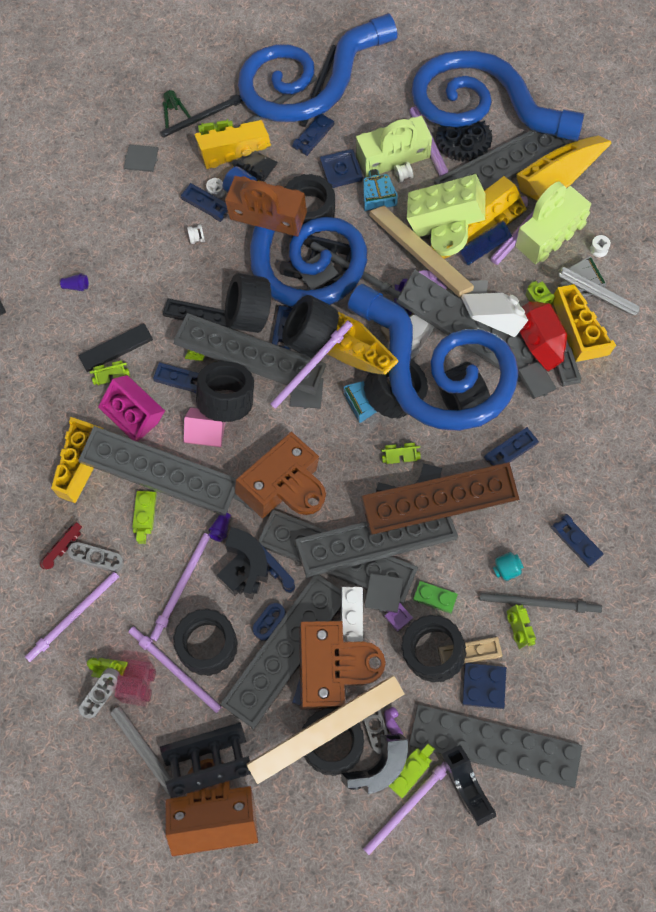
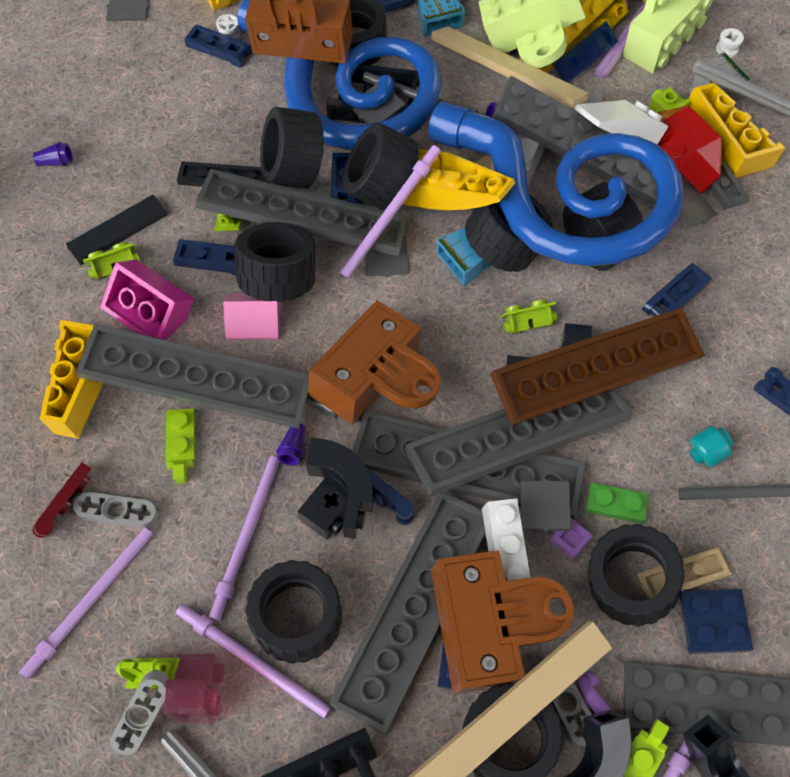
camera: 10 degrees left, 5 degrees down
(194, 235) = (207, 82): white wheel -> none
(267, 621) = (383, 570): dark blue plate -> none
(518, 617) = (742, 522): lime hinge -> none

